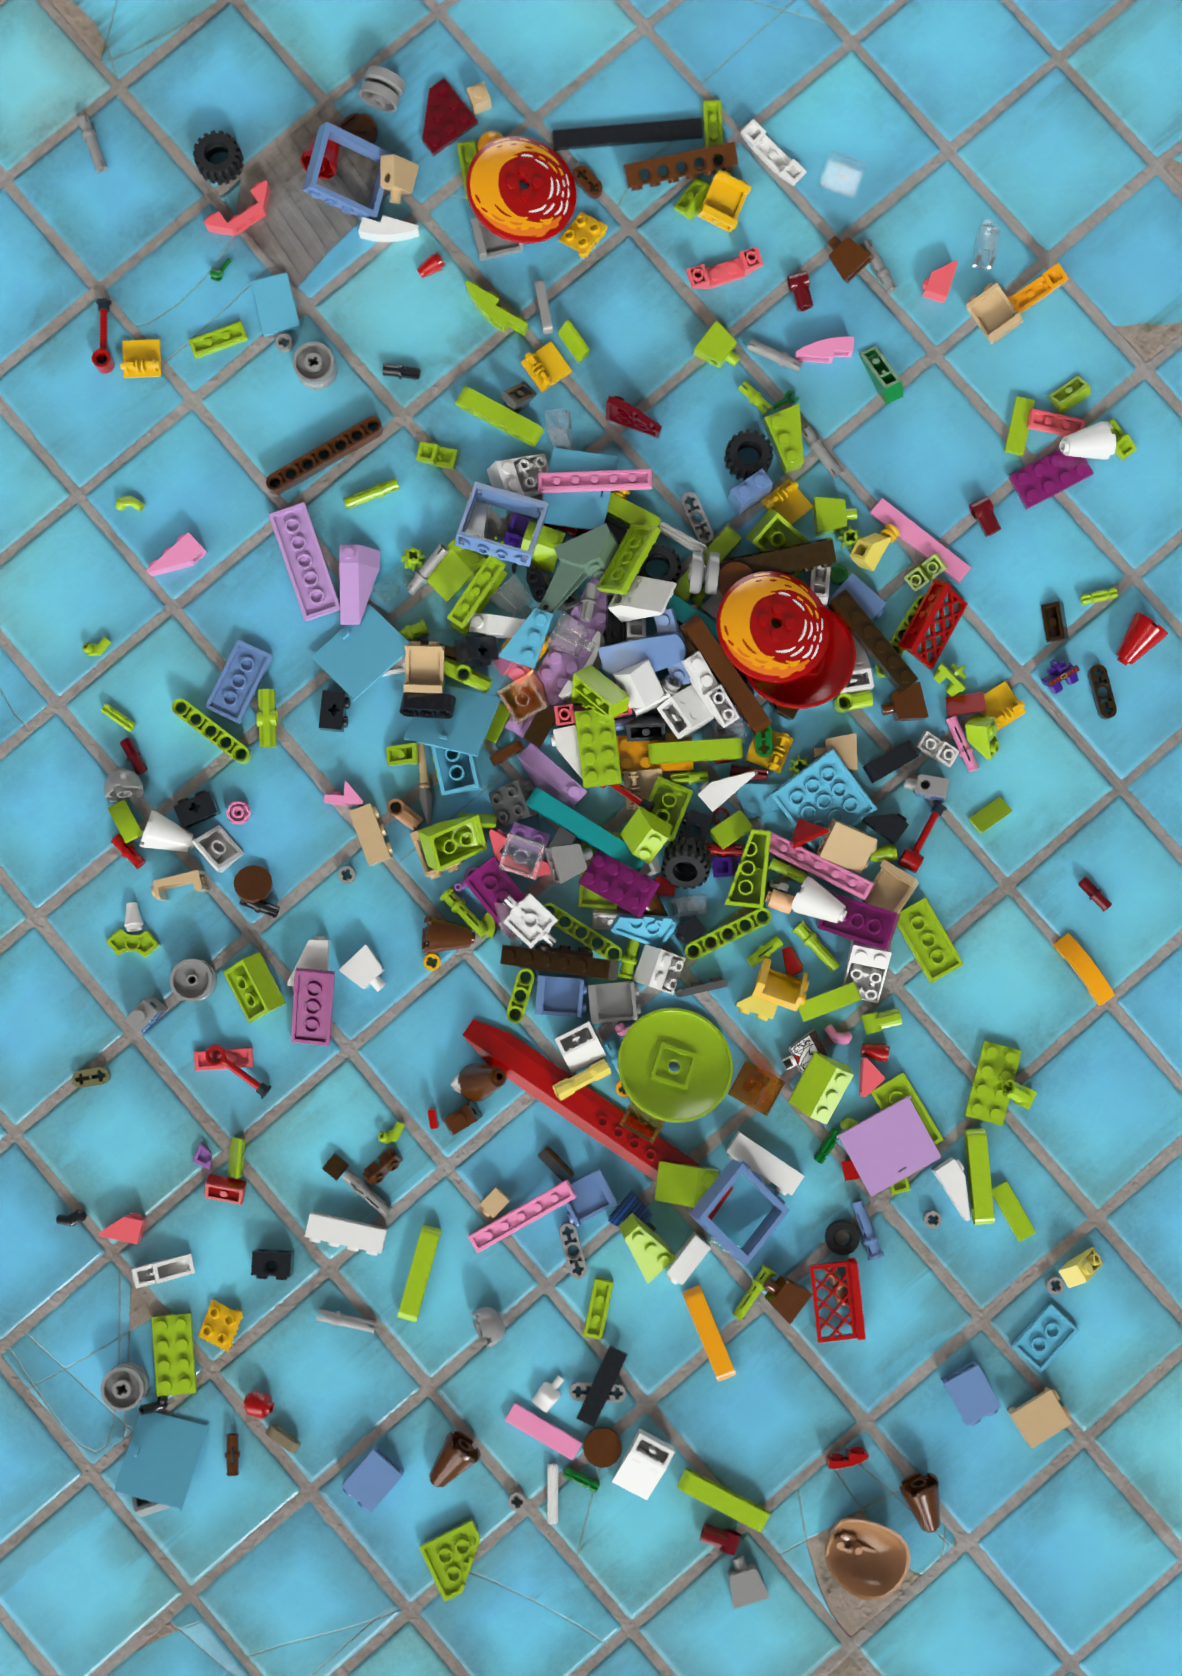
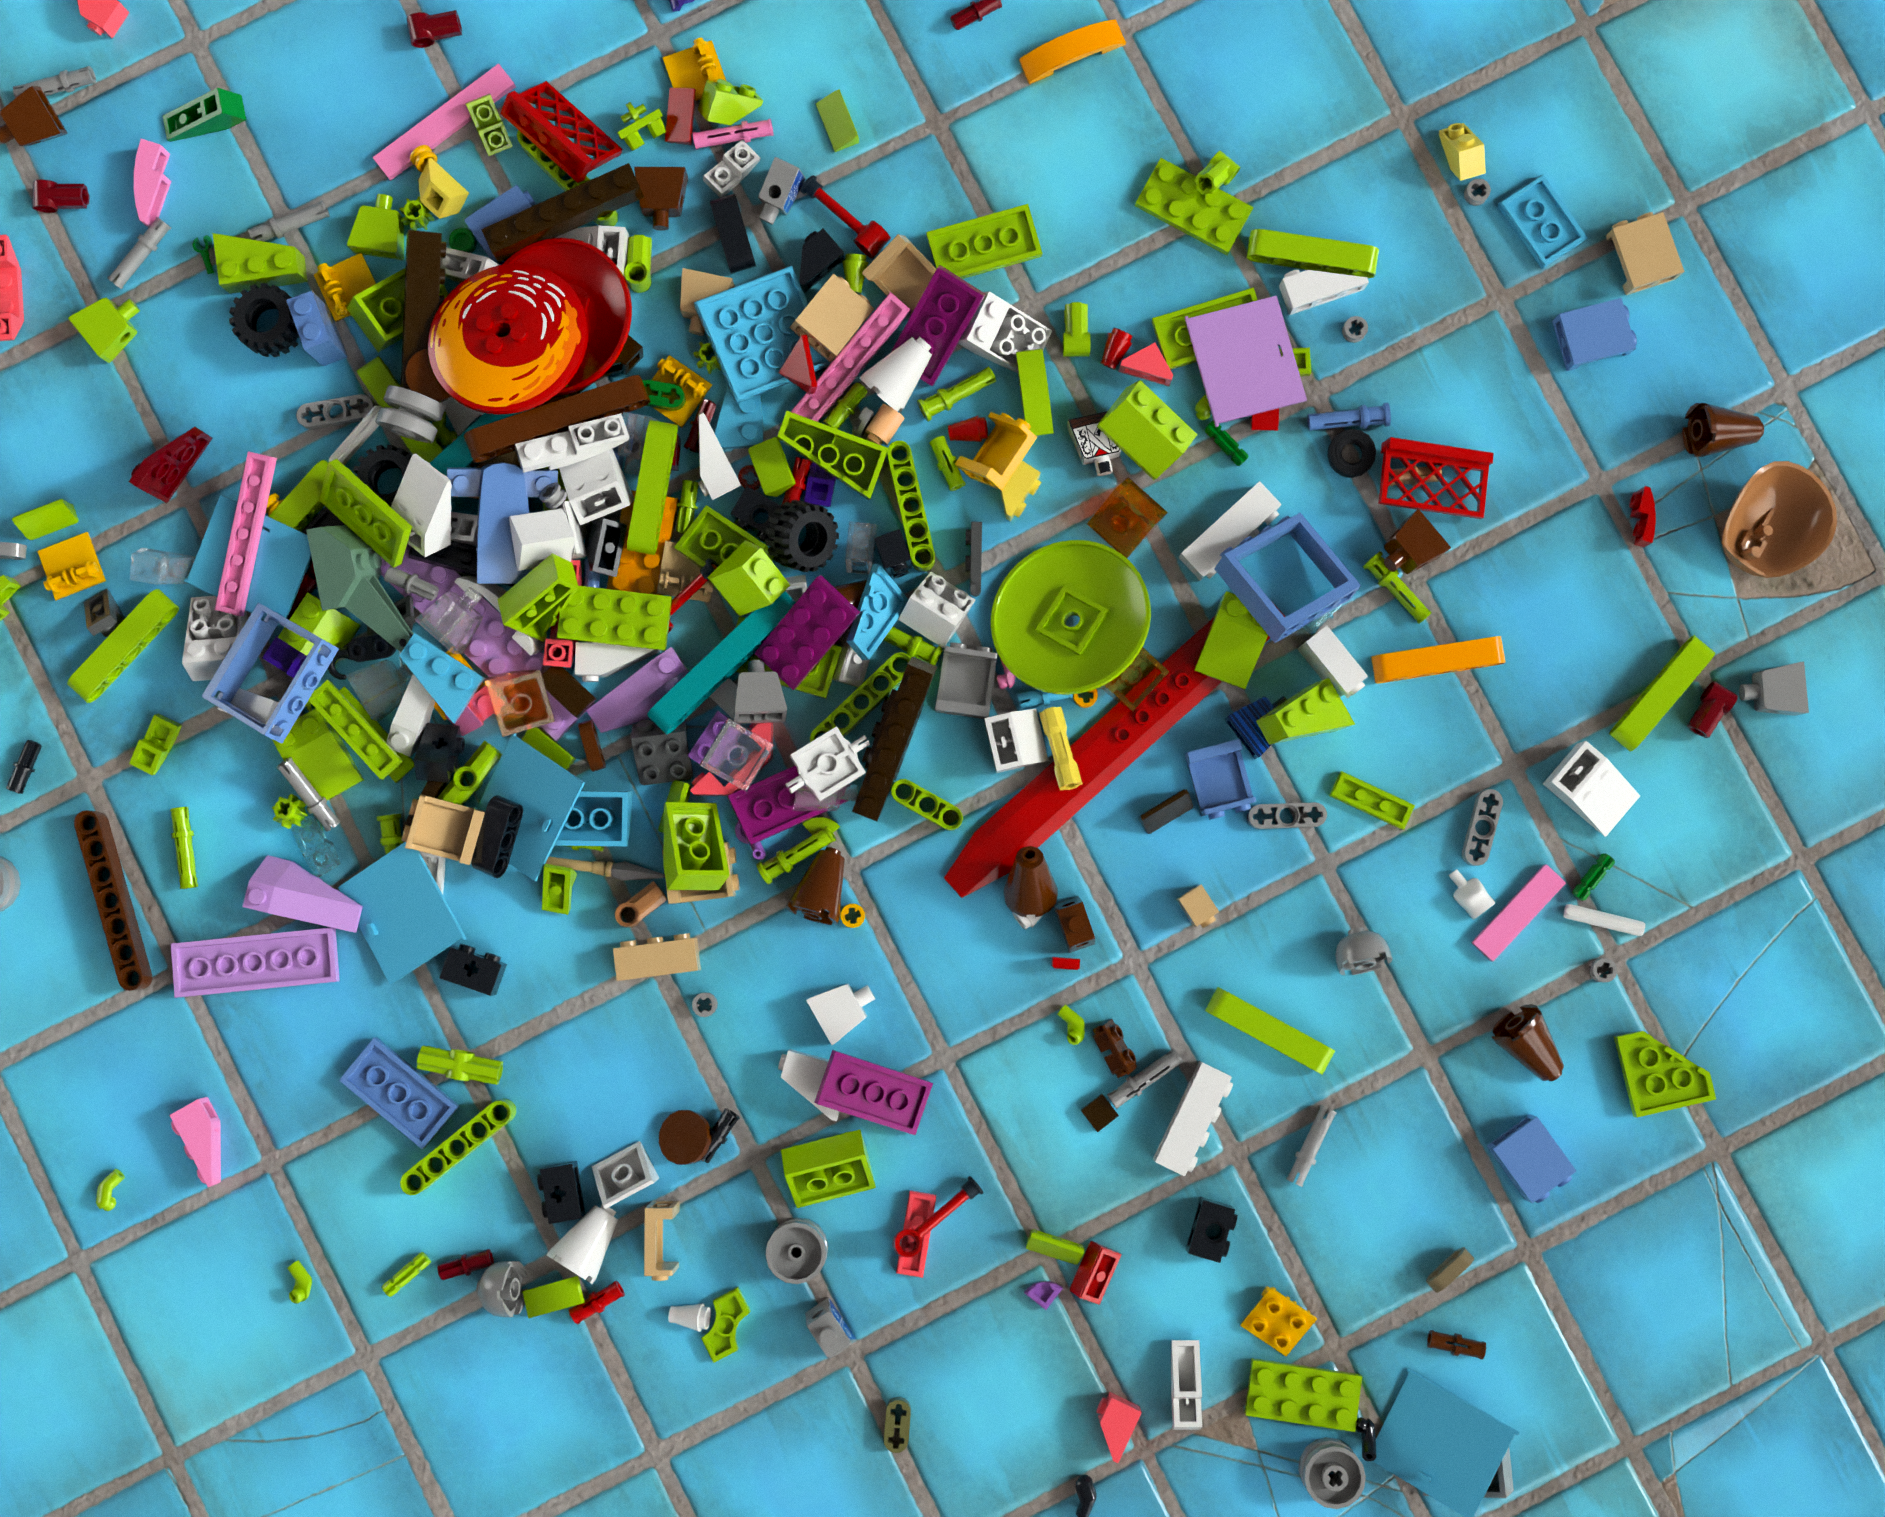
camera: 70 degrees left, 0 degrees up
(232, 811) = (573, 1139): bright pink plate -> none
(258, 1404) = (1396, 1293): red head -> none
(350, 797) = (600, 976): bright pink slope -> none
(522, 1216) = (1225, 872): bright pink tile -> none
(560, 996) = (941, 750): medium blue panel -> none
(601, 1386) = (1476, 819): black tile -> none
(602, 1447) = (1557, 838): reddish brown tile -> none
(665, 888) = (831, 572): red tile -> none
(755, 398) = (190, 293): lime pin -> none
(837, 1037) = (1085, 394): bright pink arm -> none
(1012, 1211) = (1369, 222): lime tile -> none

